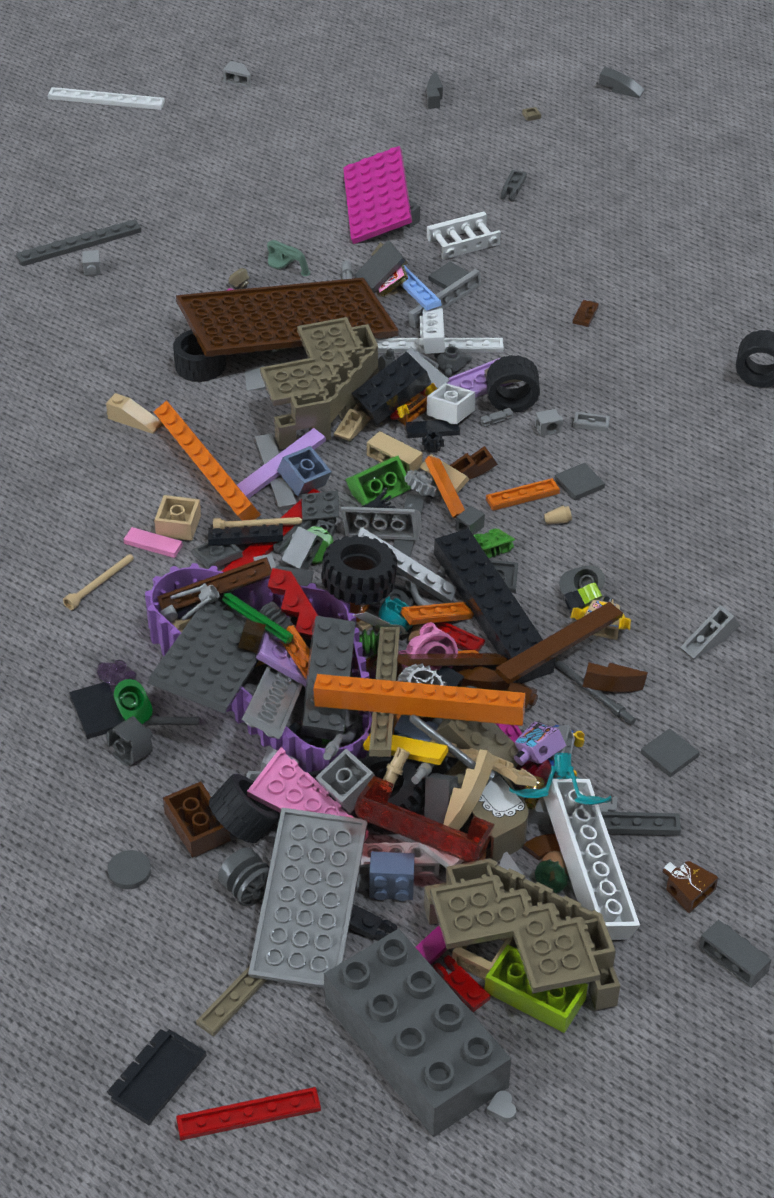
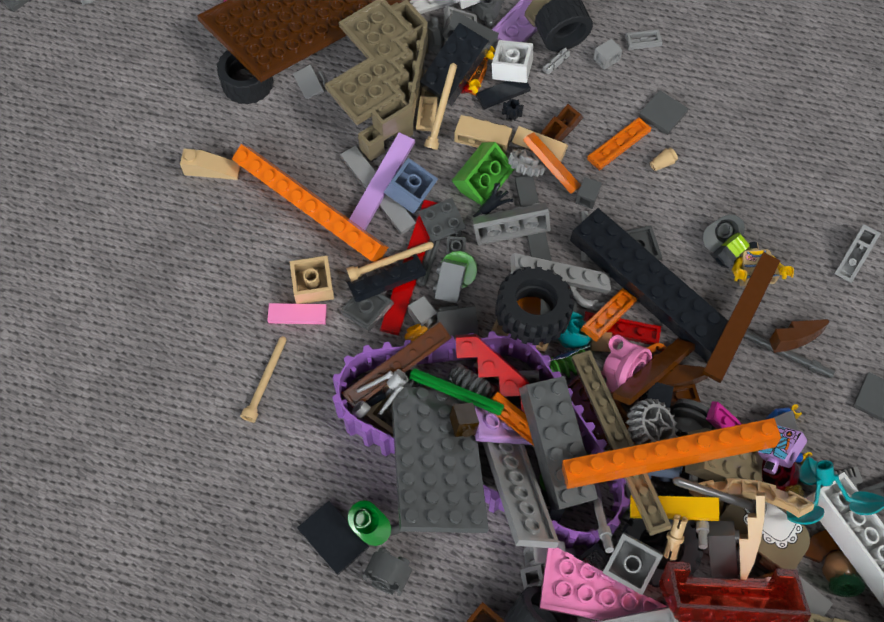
camera: 20 degrees left, 20 degrees up
(115, 672) = (333, 489): clear purple dish -> none
(344, 446) = (432, 141): none -> tan piece
(494, 542) = (619, 207): bright green hinge -> none
(530, 693) = (729, 385): reddish brown brick -> none

